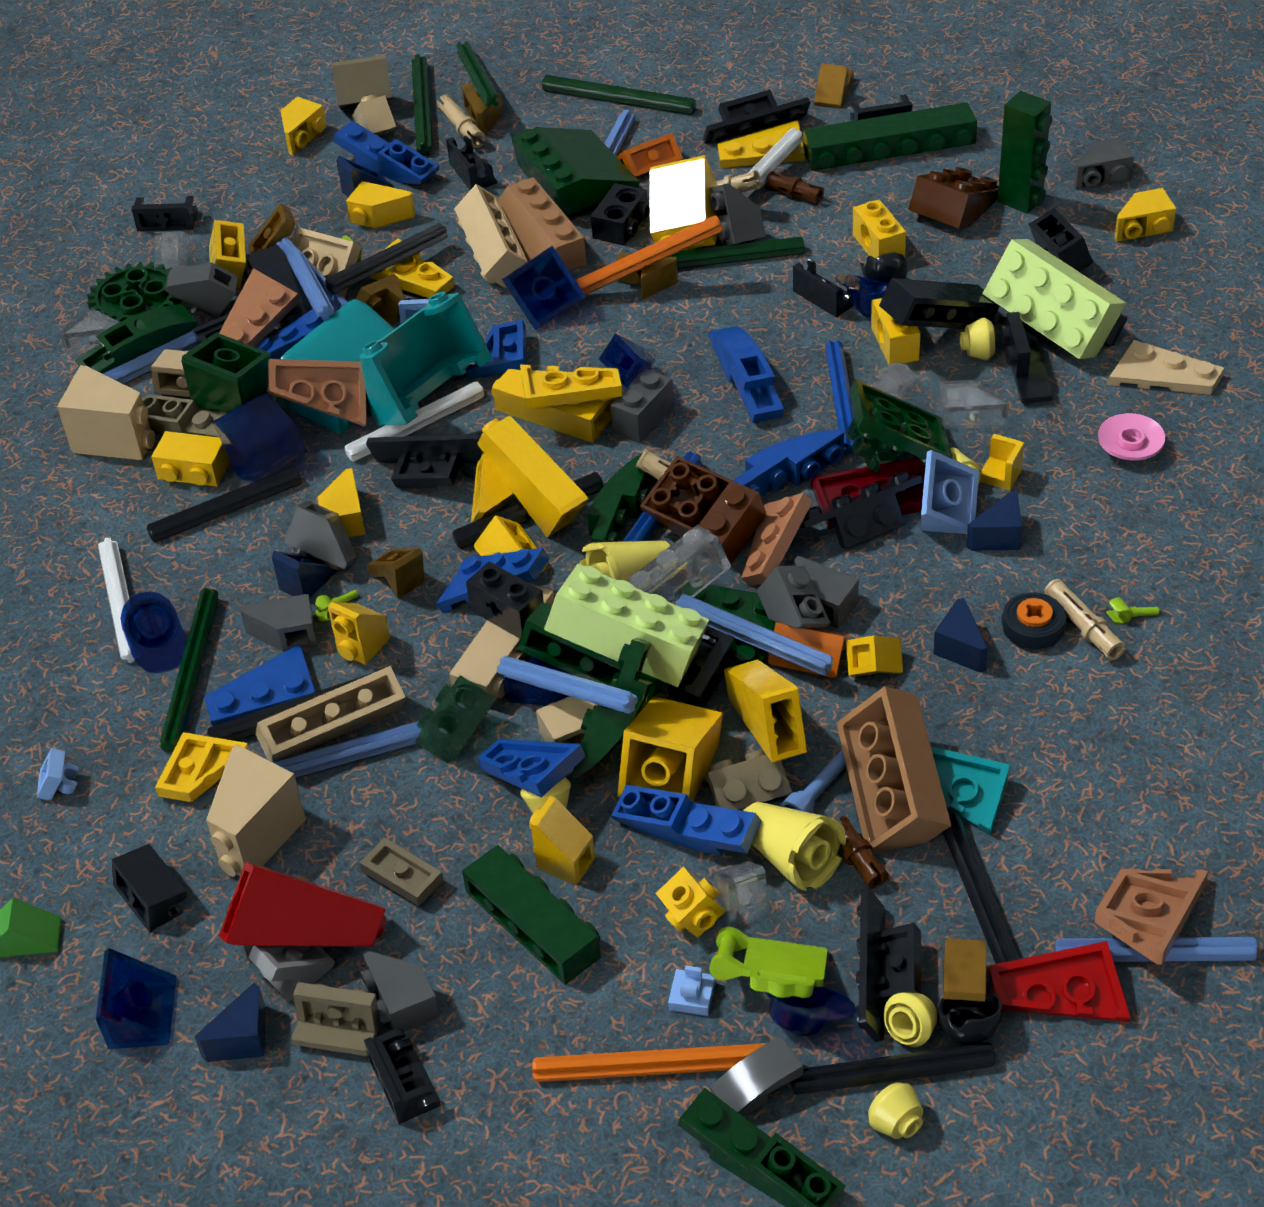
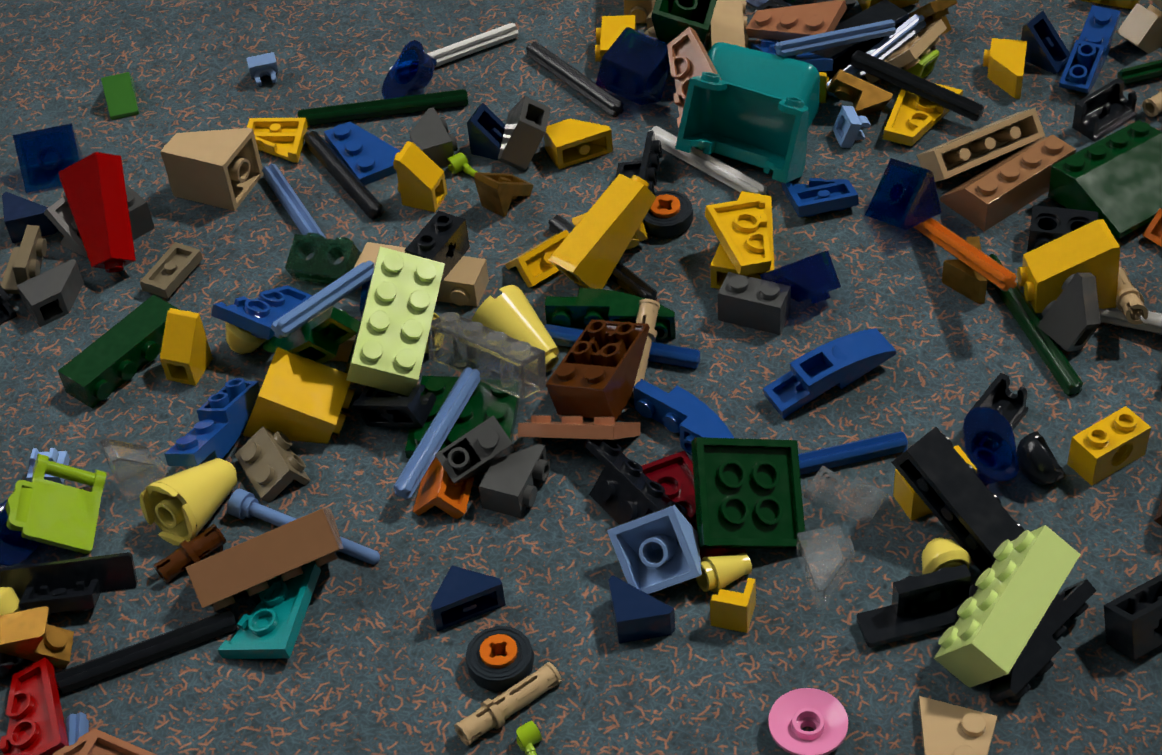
camera: 80 degrees right, 0 degrees up
(148, 886) = (152, 138): black hinge -> none
(330, 715) = (321, 188): tan brick -> none
(522, 563) = (496, 246): blue wing -> none
(690, 902) = (125, 430): yellow brick -> none
(768, 708) = (331, 445): yellow slope -> none
(874, 655) = (432, 533): yellow panel -> none

